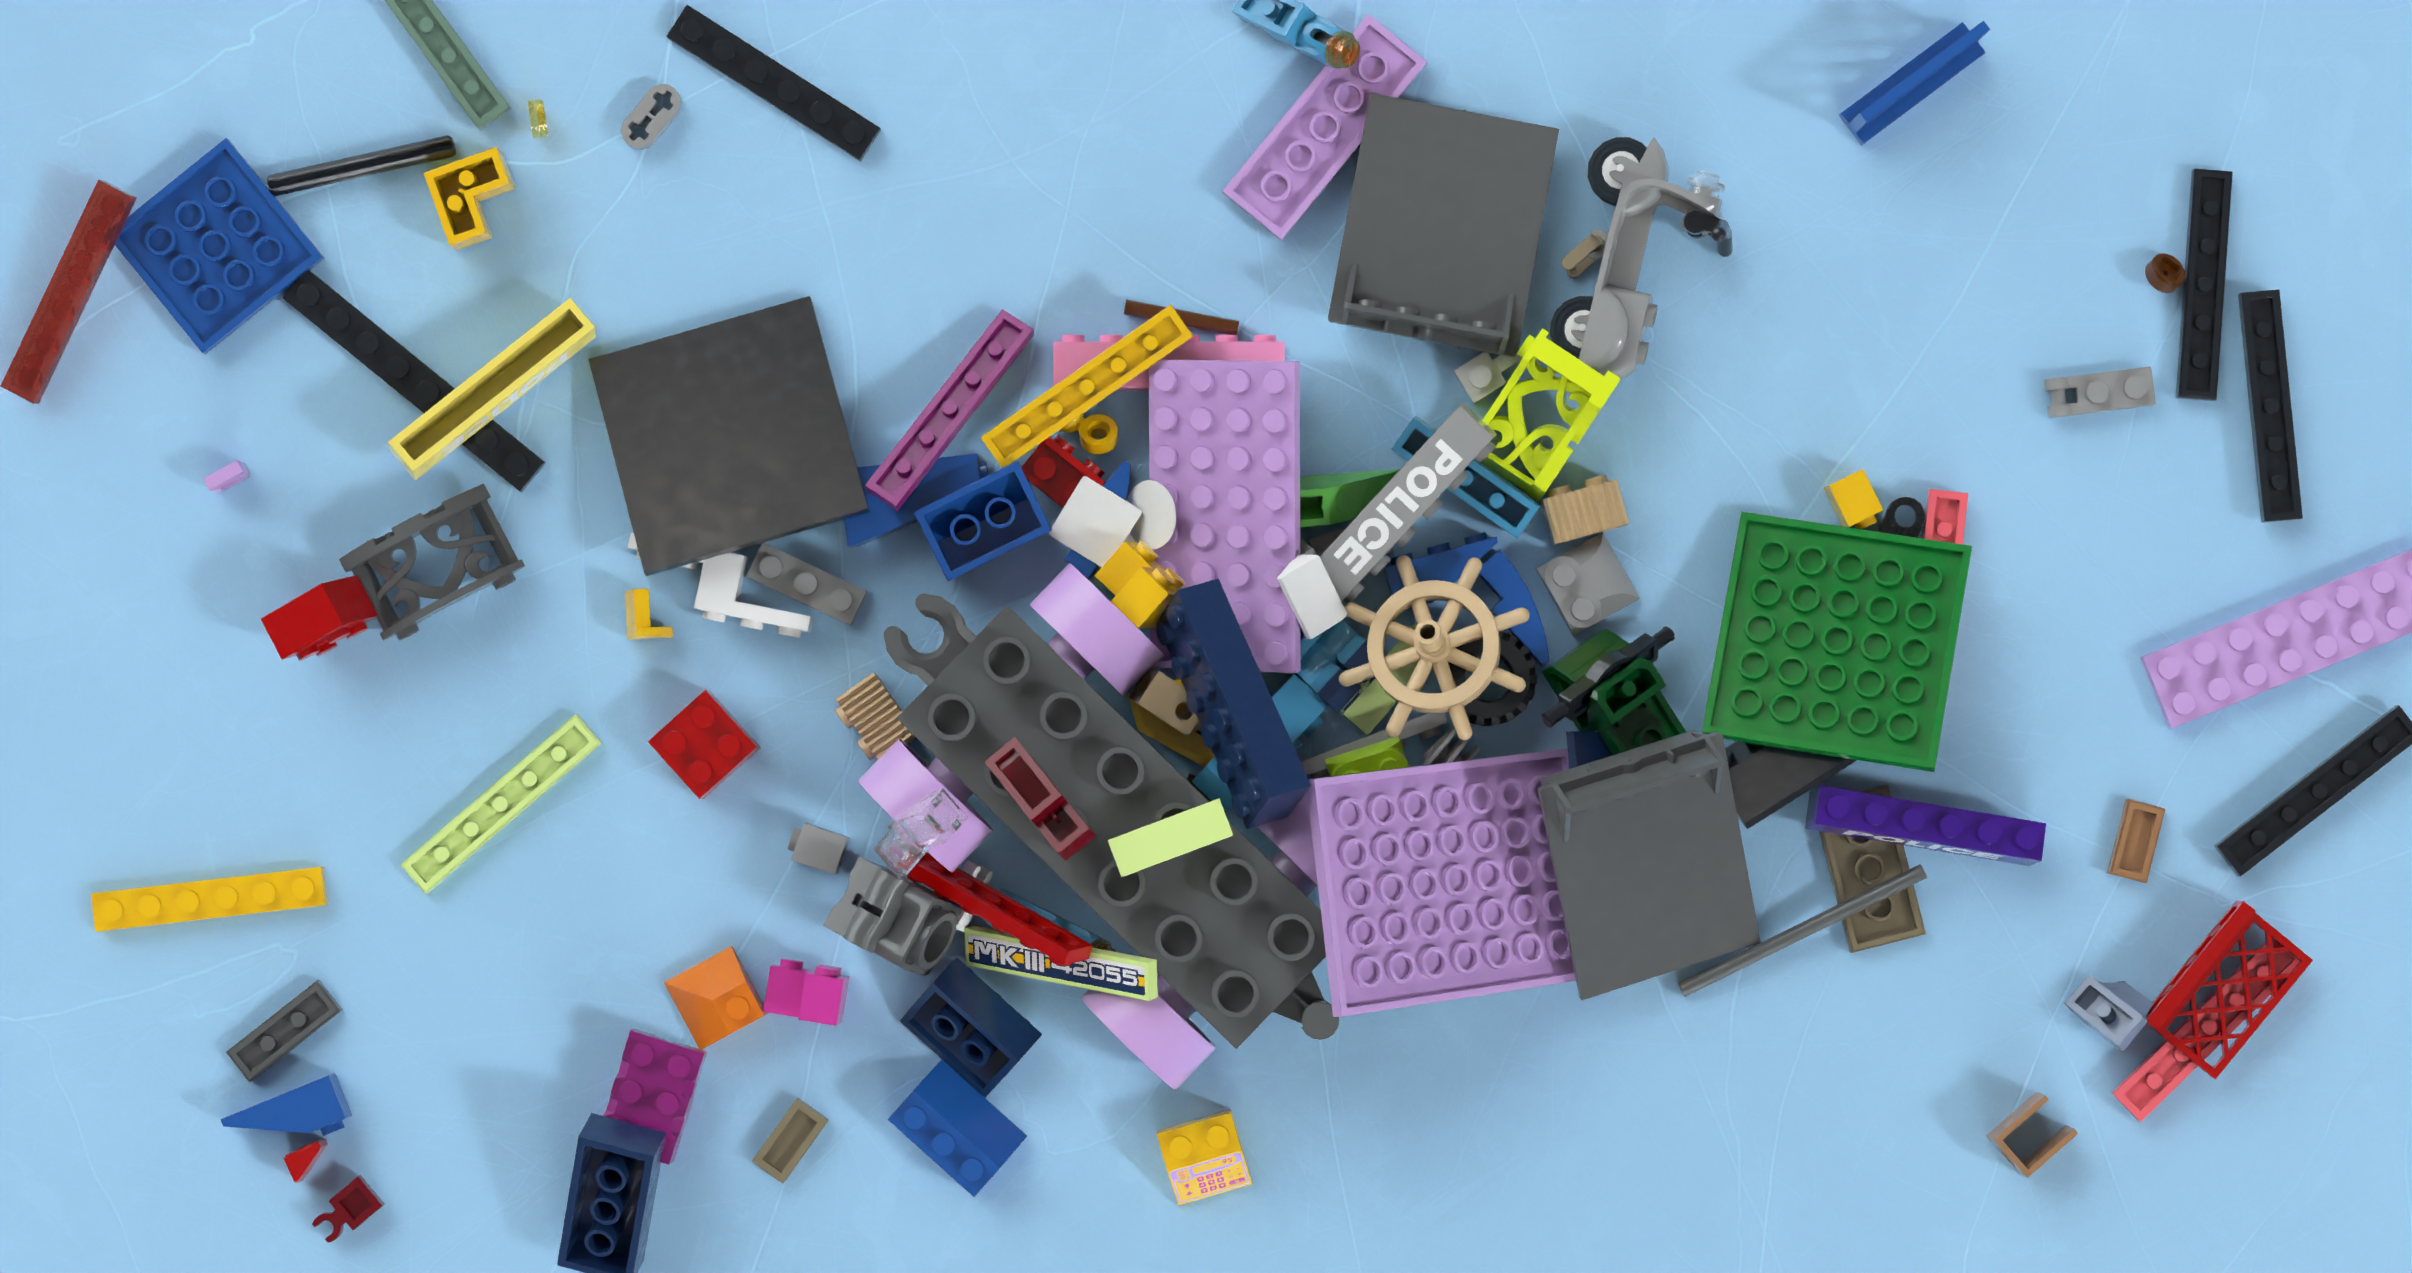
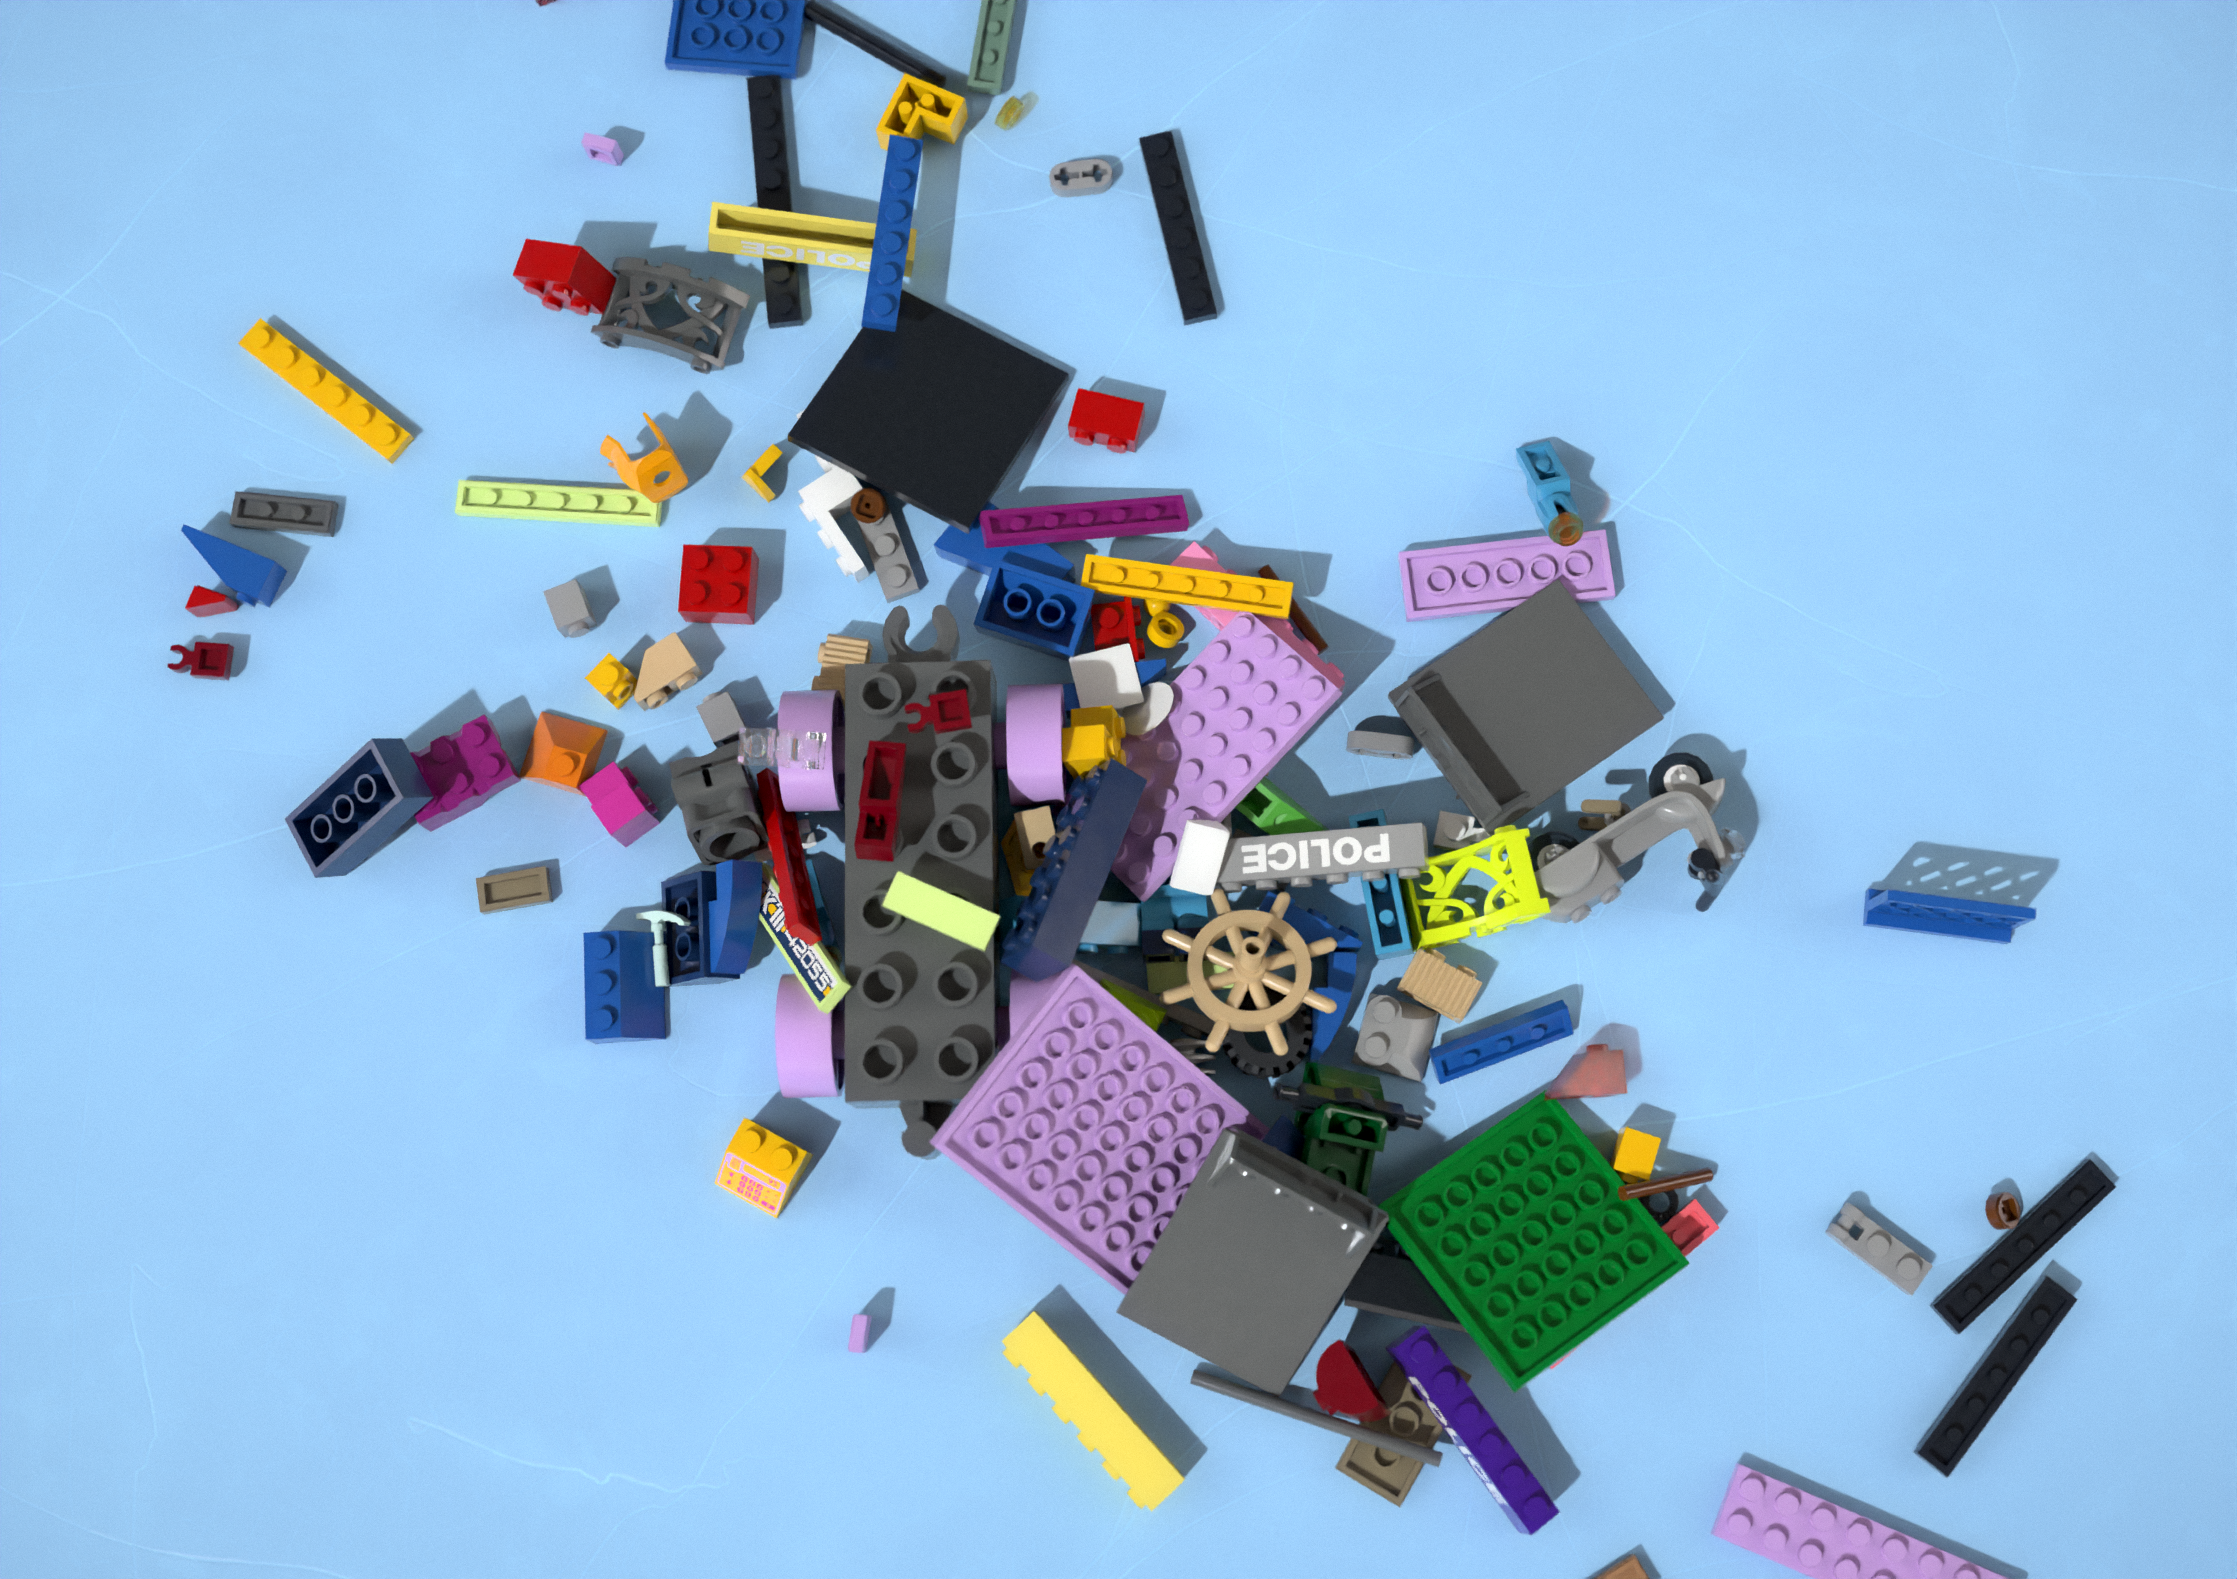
camera: 55 degrees right, 10 degrees down
(556, 321) = (892, 233): none -> blue plate
(560, 719) = (641, 472): none -> light orange piece
(605, 880) = (570, 609): none -> light grey brick
(701, 903) = (613, 681): none -> yellow brick
(731, 854) = (663, 671): none -> tan slope
(762, 565) = (868, 505): none -> reddish brown tile
(881, 307) = (1106, 421): none -> red brick
(954, 1072) = (660, 949): none -> light aqua piece
(993, 991) = (734, 915): none -> blue slope
(1021, 682) = (947, 712): none -> dark red plate
(1357, 363) = (1380, 745): none -> light grey beam
(1402, 1205) = (859, 1333): none -> lavender tile
(1632, 1088) = (1093, 1411): none -> light yellow brick
(1672, 509) = (1501, 1041): none -> blue plate
(1764, 470) = (1590, 1075): none -> clear red slope
(1805, 884) = (1347, 1385): none -> dark red brick
(1898, 500) = (1665, 1184): none -> reddish brown bar

